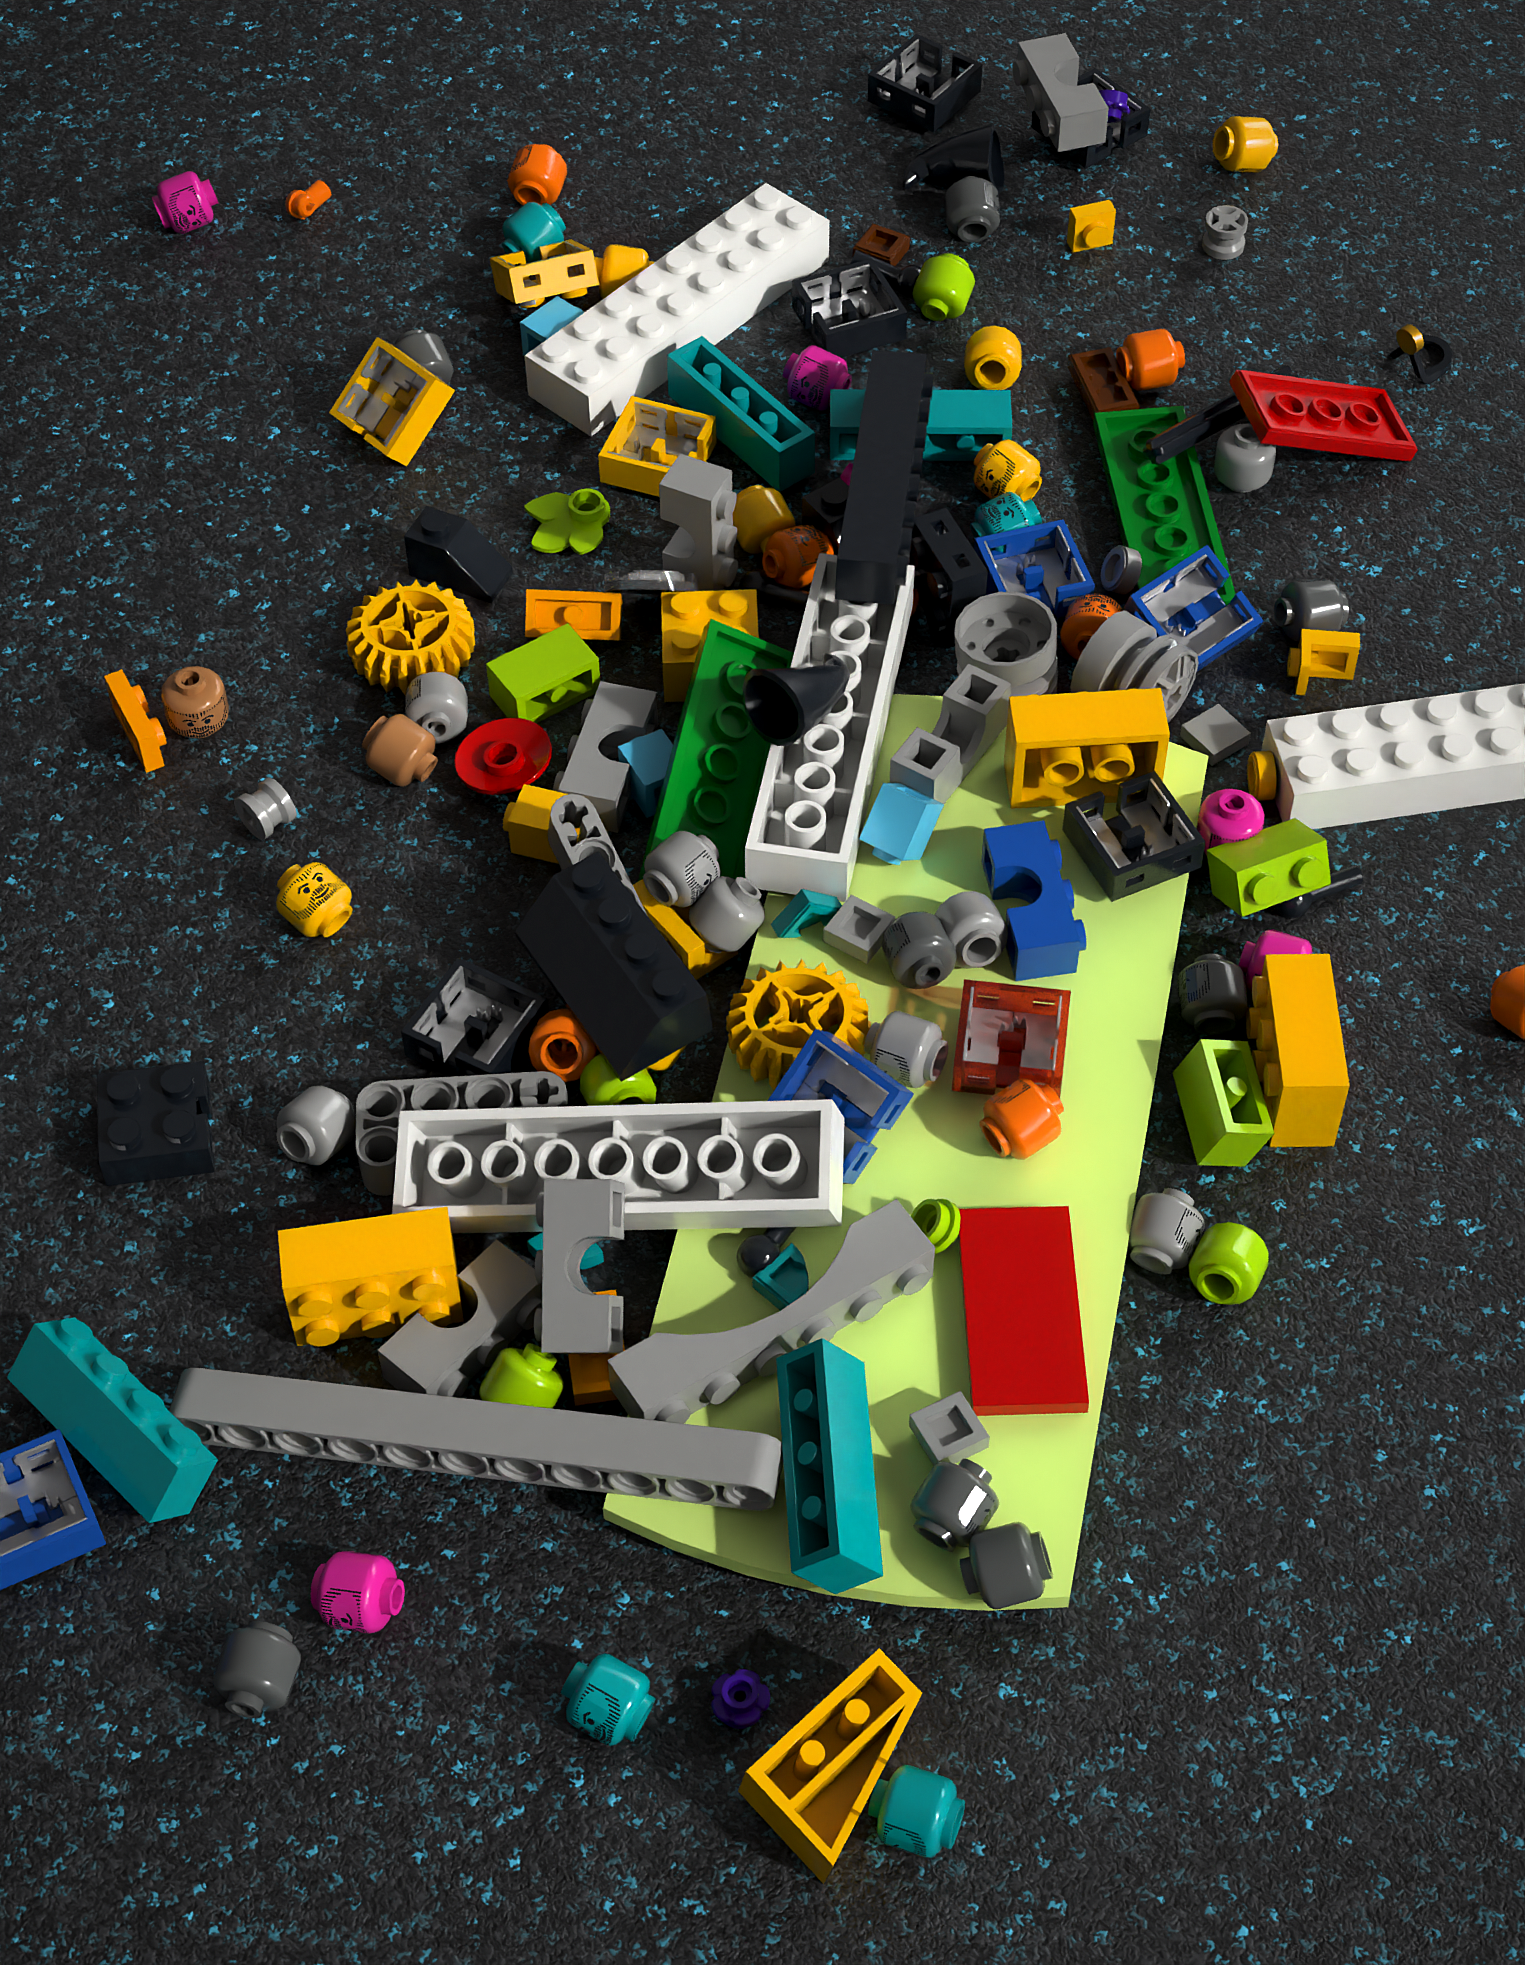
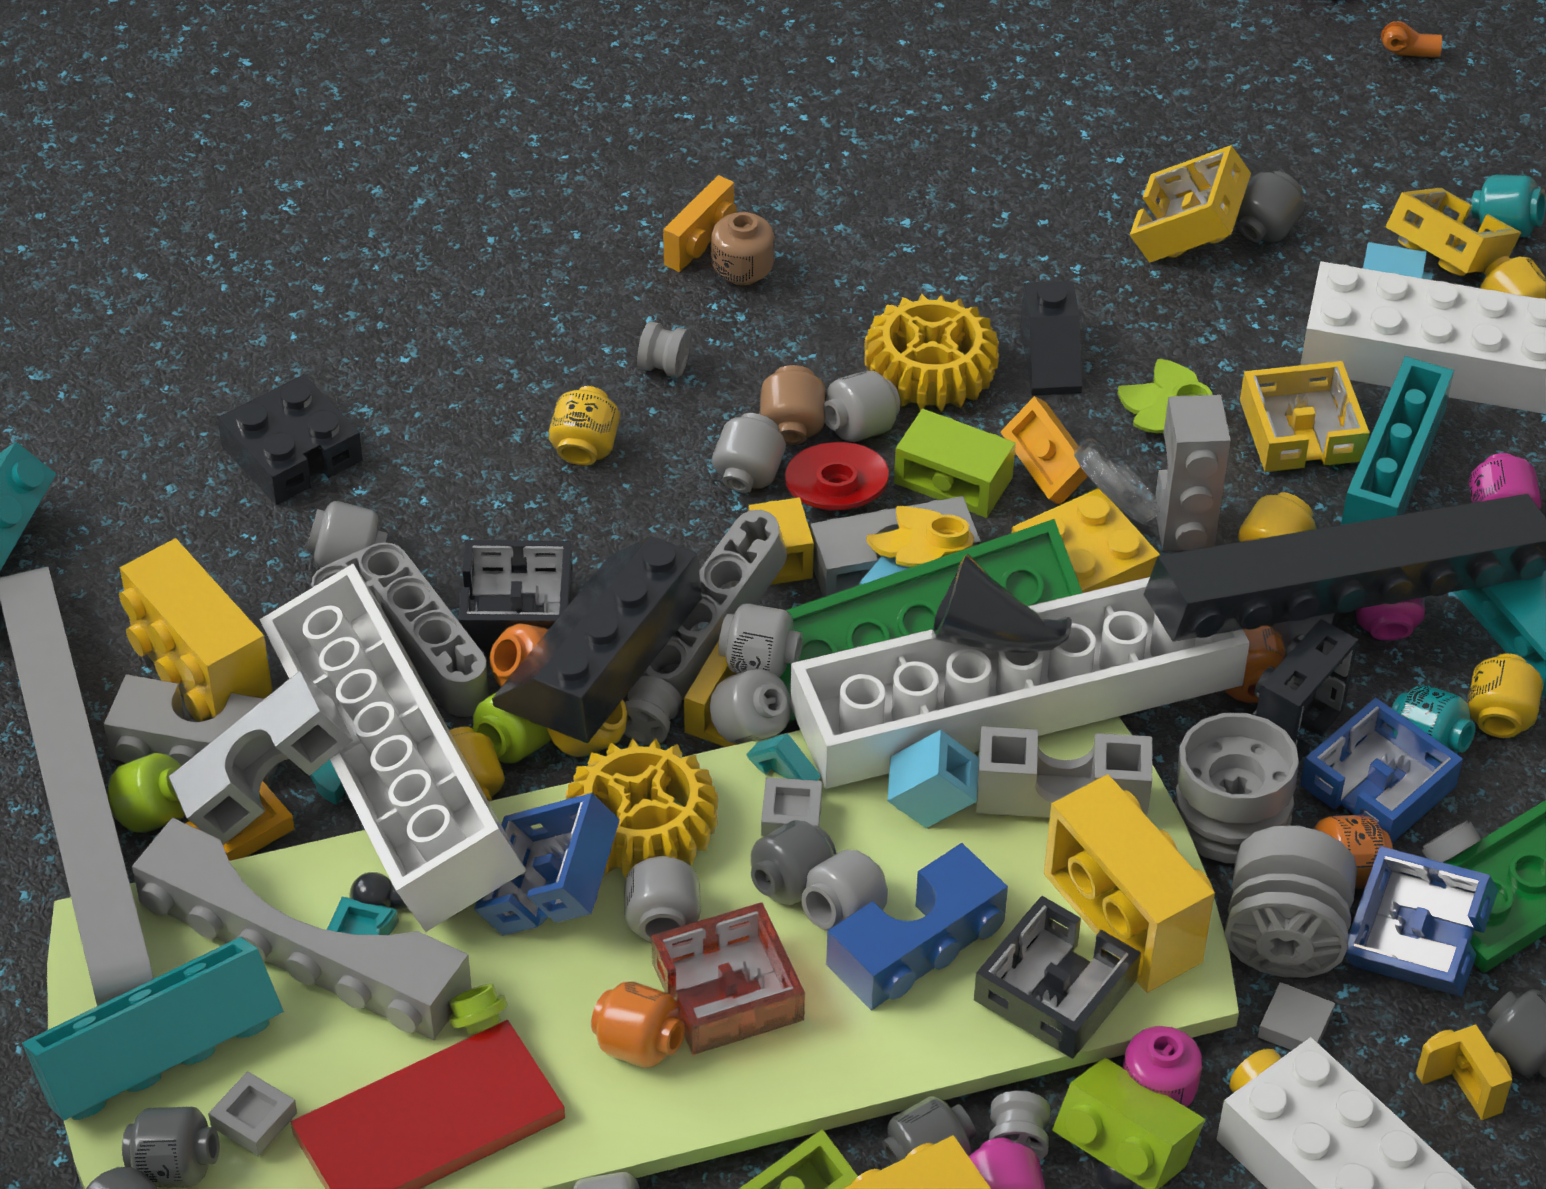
camera: 60 degrees right, 5 degrees down
(432, 802) = (749, 452): none -> light grey head
(638, 721) = (922, 536): none -> yellow plate
(1226, 934) = (1021, 1119): none -> light grey wheel

